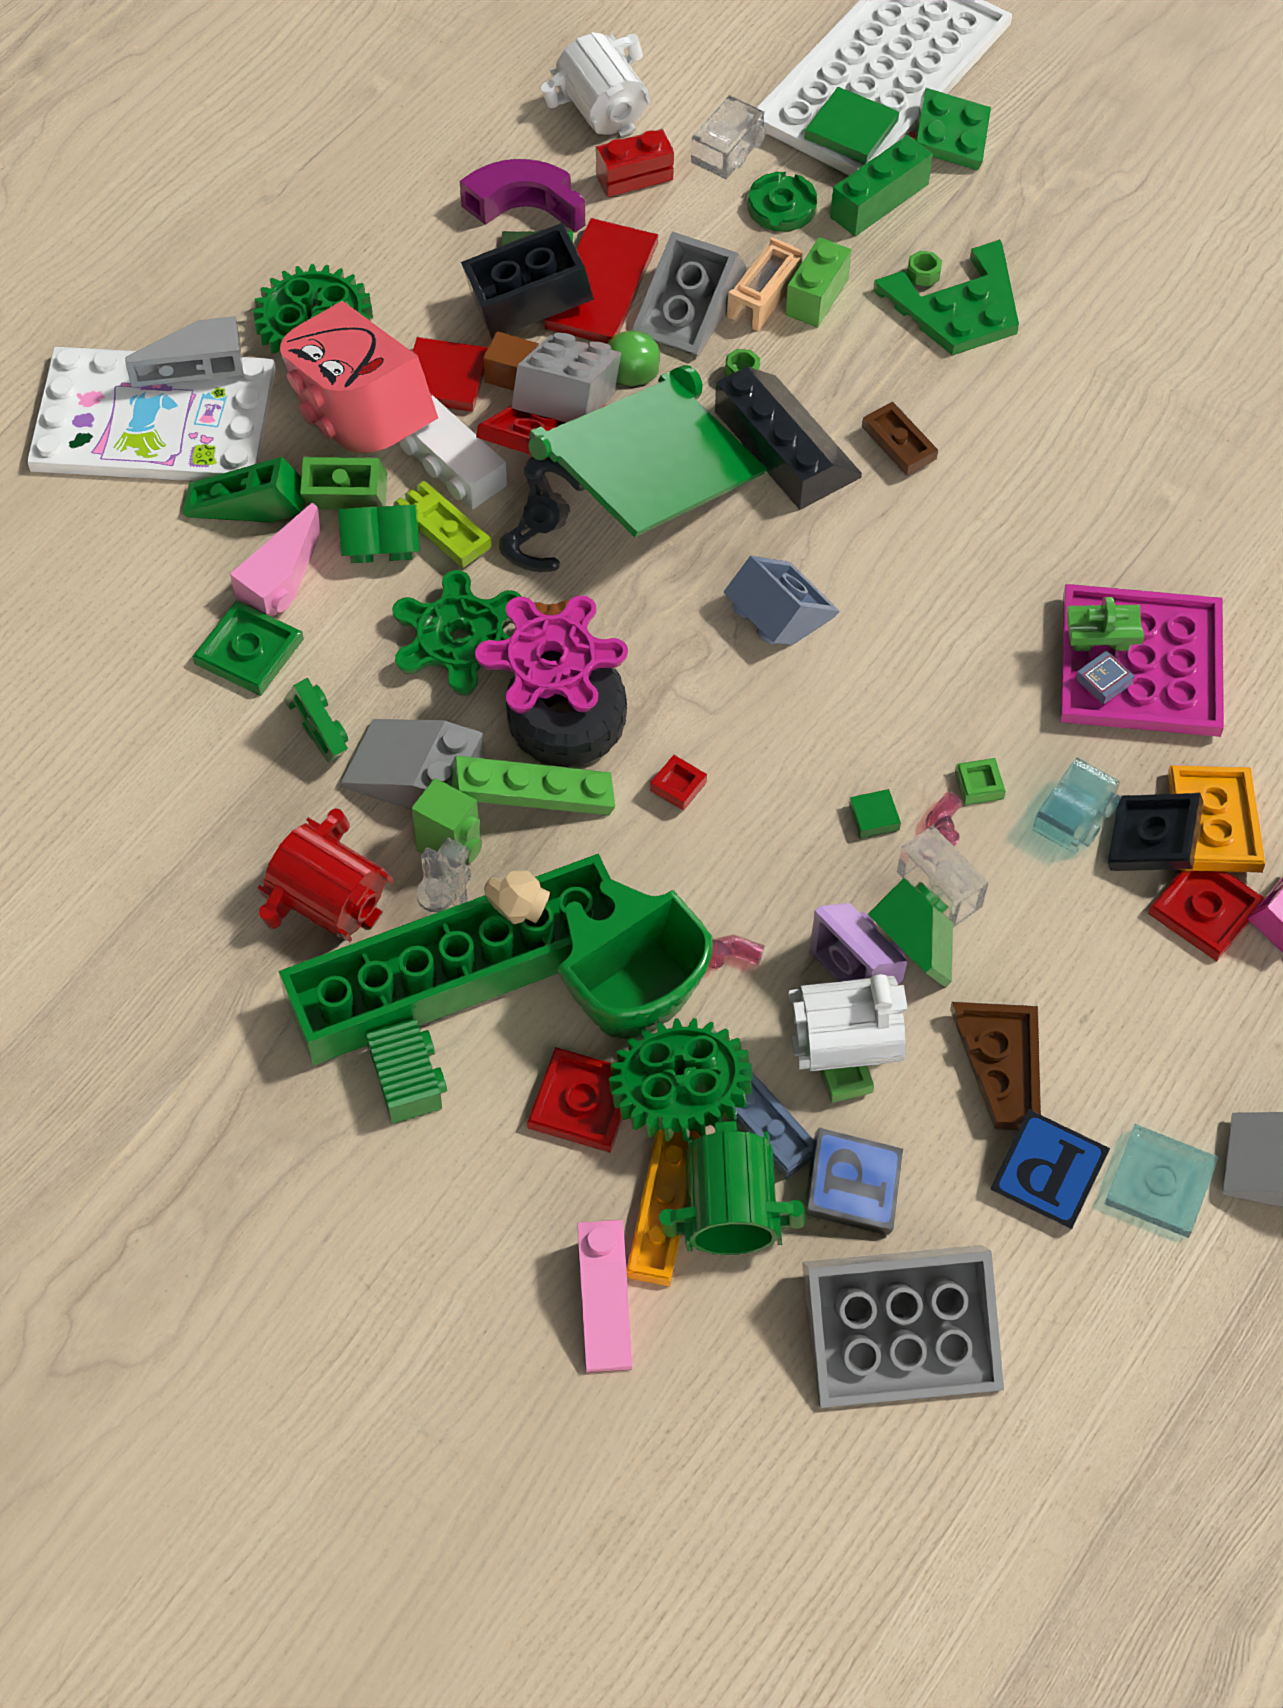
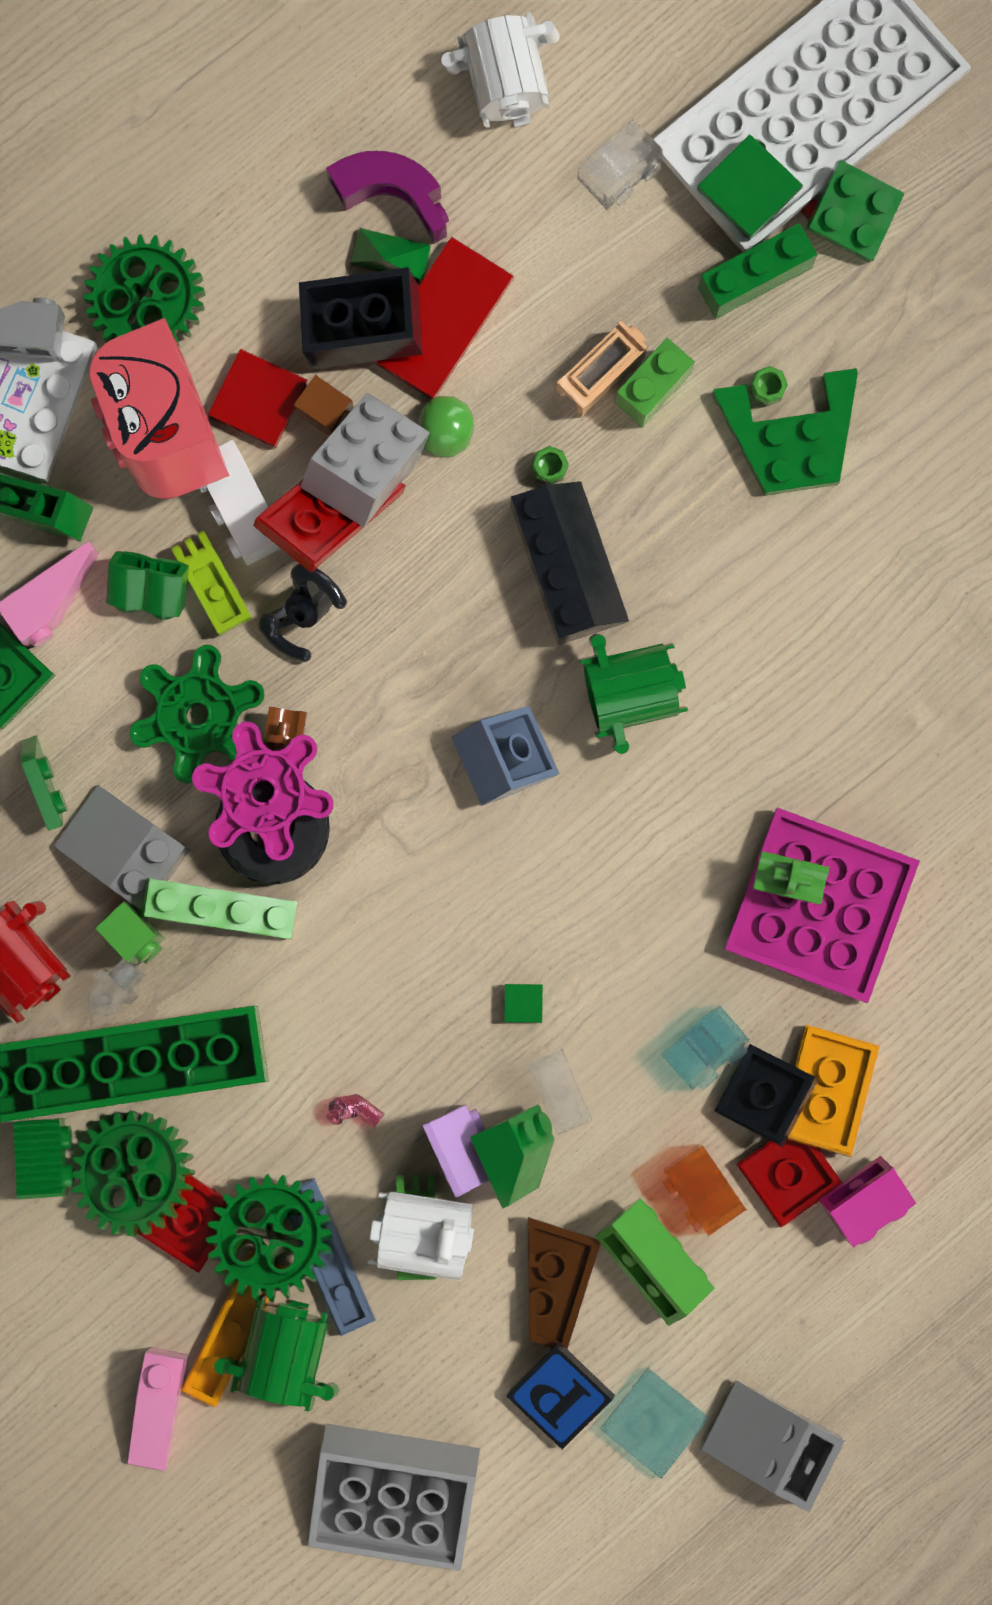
camera: 15 degrees right, 25 degrees up
(343, 482) = (125, 521): bright green brick -> none
(517, 896) = (166, 1044): tan rock -> none
(543, 1037) = (101, 1184): none -> green gear
(634, 162) = (513, 178): red brick -> none
(637, 961) = (256, 1129): green piece -> none
(650, 453) = (422, 572): door -> none
(678, 782) = (354, 928): red plate -> none
(689, 293) = (520, 365): light grey slope -> none
(782, 201) = (653, 258): green tile -> none
(853, 1181) = (392, 1360): tile -> none
(885, 512) = (630, 688): none -> green container
(899, 438) = (676, 592): reddish brown plate -> none
(941, 816) = (578, 1029): clear pink arm -> none
(980, 781) = (629, 993): bright green tile -> none
(1102, 1009) = (655, 1262): none -> bright green brick
(1105, 677) = (775, 925): sand blue tile -> none
(1126, 934) = (703, 1190): none -> clear orange brick

